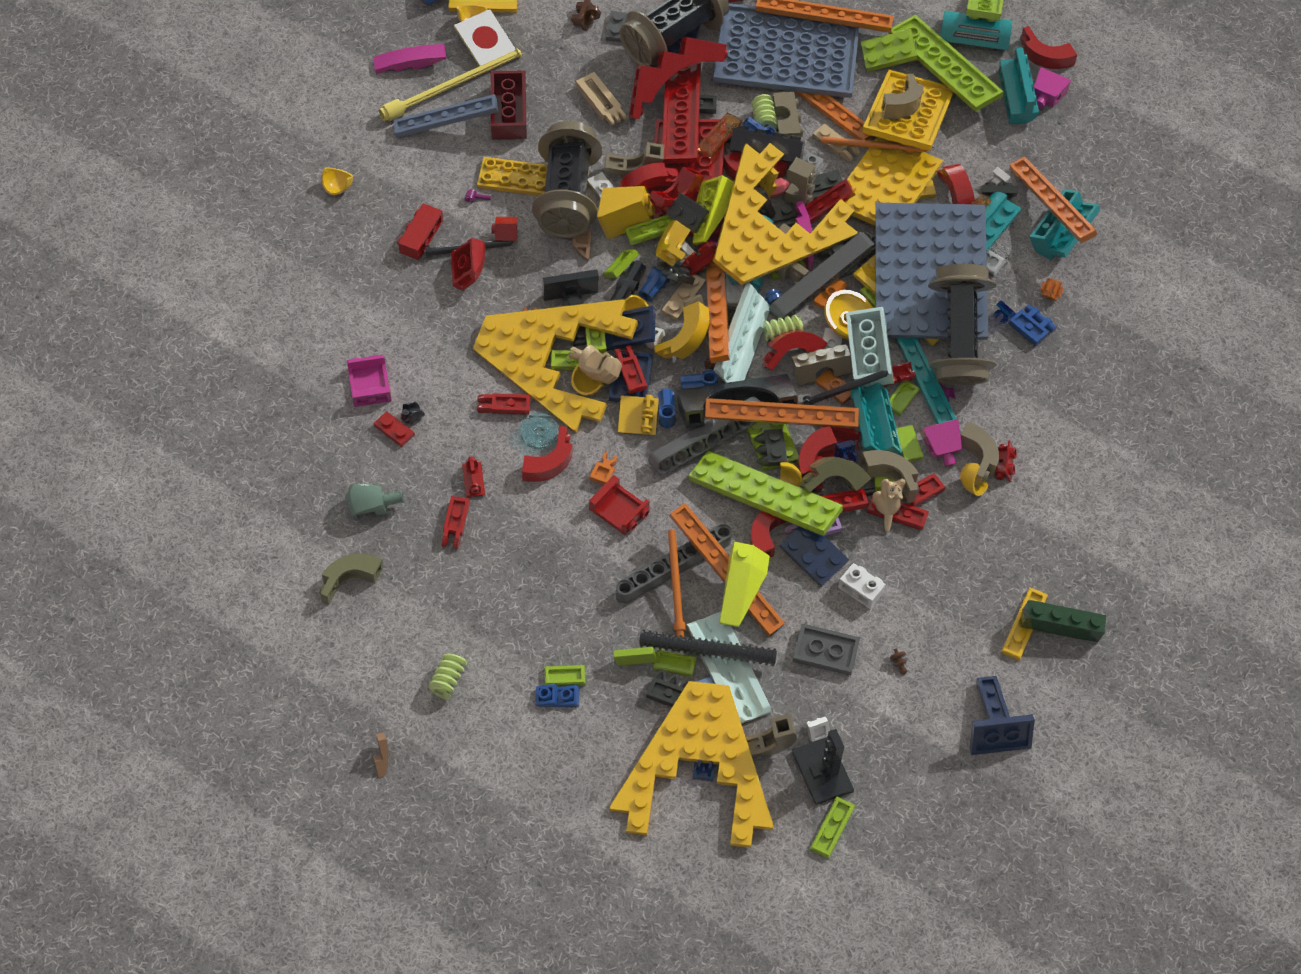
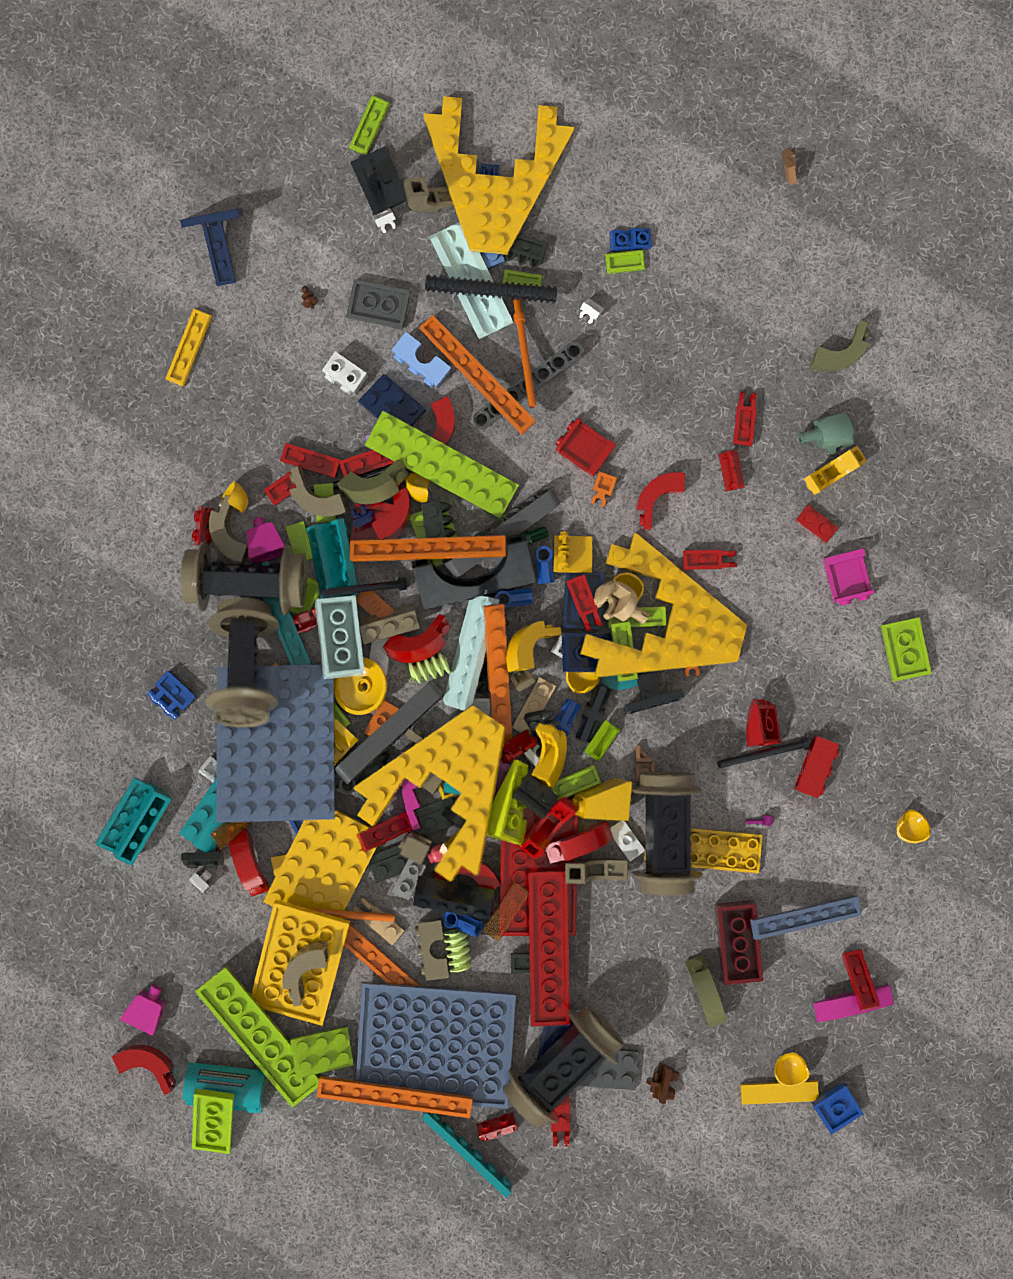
camera: 175 degrees left, 30 degrees up
(322, 319) = (906, 649): none -> lime plate
(374, 468) = (835, 470): none -> yellow arch
(401, 71) = (861, 980): none -> red plate
(411, 412) = (801, 542): black arm -> none
(446, 674) = (735, 248): yellowish green piece -> none
(486, 44) = (767, 1024): flag -> none
(505, 228) = (727, 775): red brick -> none
(541, 440) = (679, 537): clear light blue plate -> none
(543, 72) = (706, 991): none -> olive arch
(597, 96) = (641, 965): tan hinge -> none
(603, 629) = (591, 308): none -> white tile
(635, 656) = (559, 280): lime tile -> none
(650, 79) = (583, 980): red arch -> none
(672, 434) = (536, 535): none -> dark green axle
(744, 577) = (459, 362): neon yellow wedge -> none
(772, 295) = (441, 710): blue plate -> none
(797, 601) = (433, 372): none -> light blue arch
(888, 500) = (318, 460): tan animal -> none
(962, 399) = (282, 580): none -> brick
(1005, 310) = (197, 708): clear blue tile -> none
(1018, 89) = (178, 1005): teal brick -> none
(1051, 289) = (150, 738): orange gear -> none
(1053, 200) = (144, 843): orange plate -> none
(1063, 621) = (150, 343): dark green brick -> none

